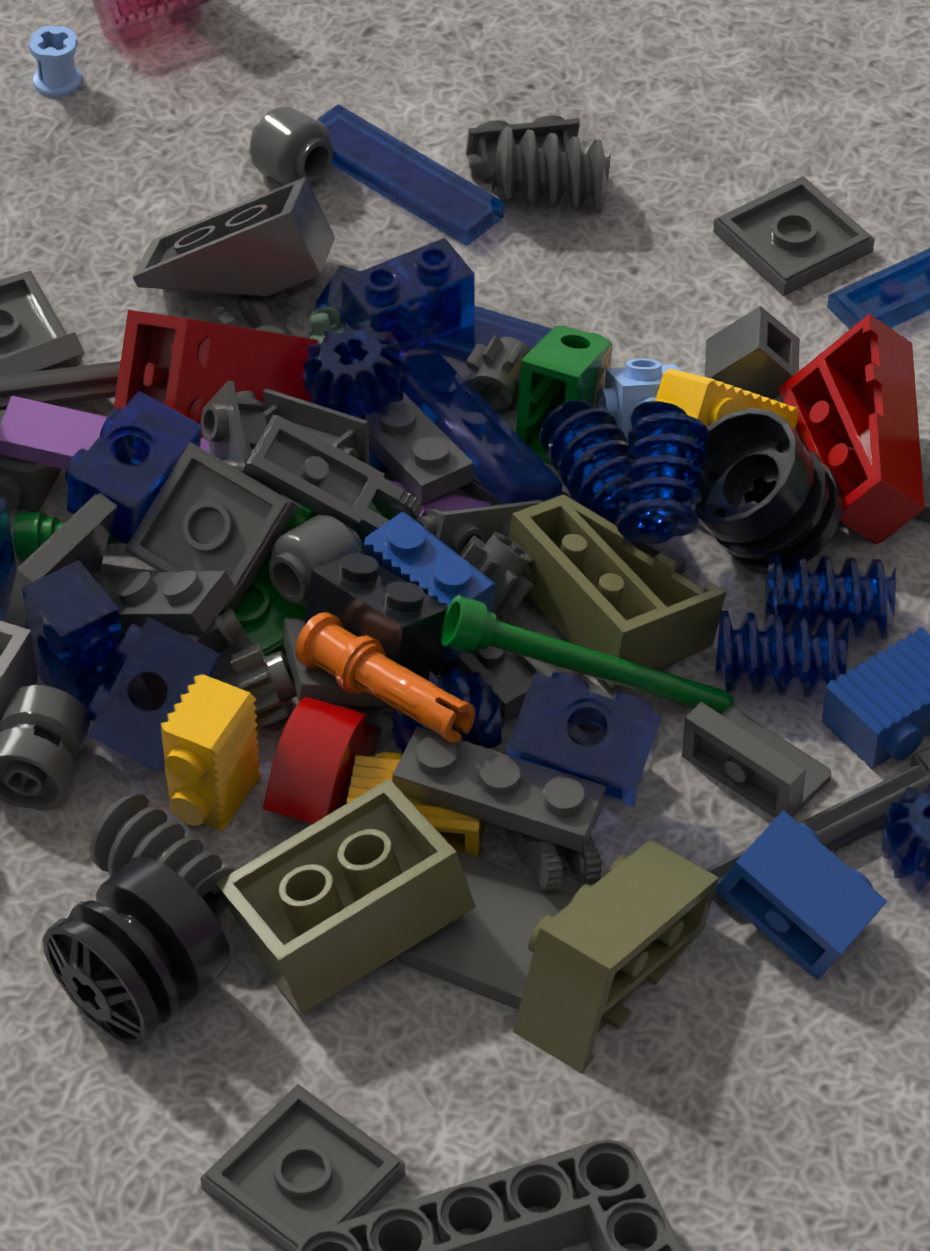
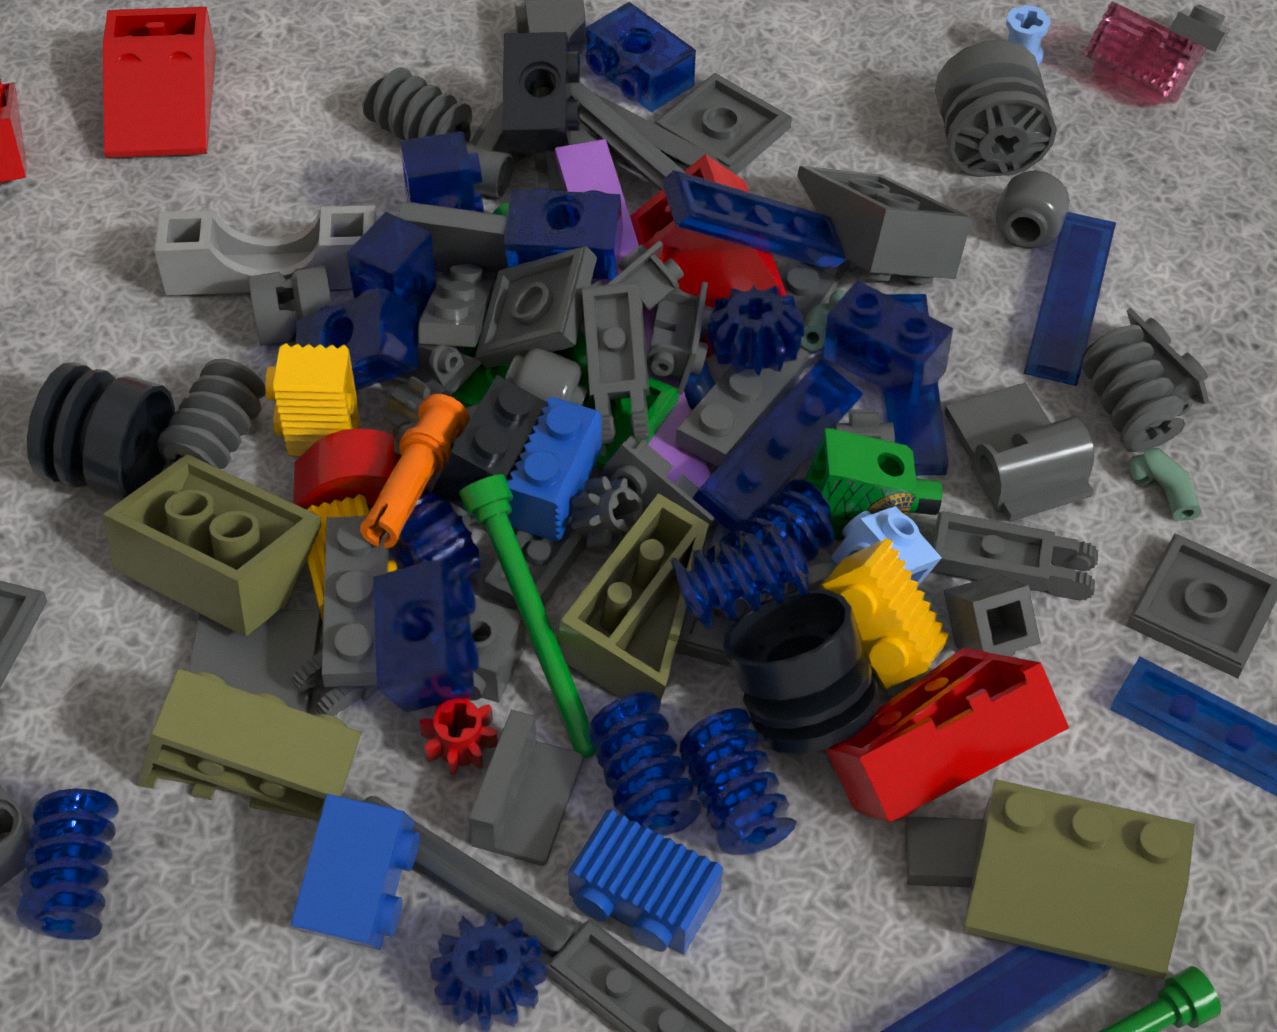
camera: 65 degrees right, 5 degrees up
(159, 111) = (995, 109): none -> dark grey wheel
(233, 312) = (752, 220): none -> clear blue tile
(578, 281) = (1020, 454): none -> dark grey piece
(654, 196) = (1173, 479): none -> sand green arm
(675, 1131) = (67, 864): none -> clear blue piece
(677, 780) = (443, 728): none -> red gear
(681, 324) = (987, 547): none -> dark grey hinge

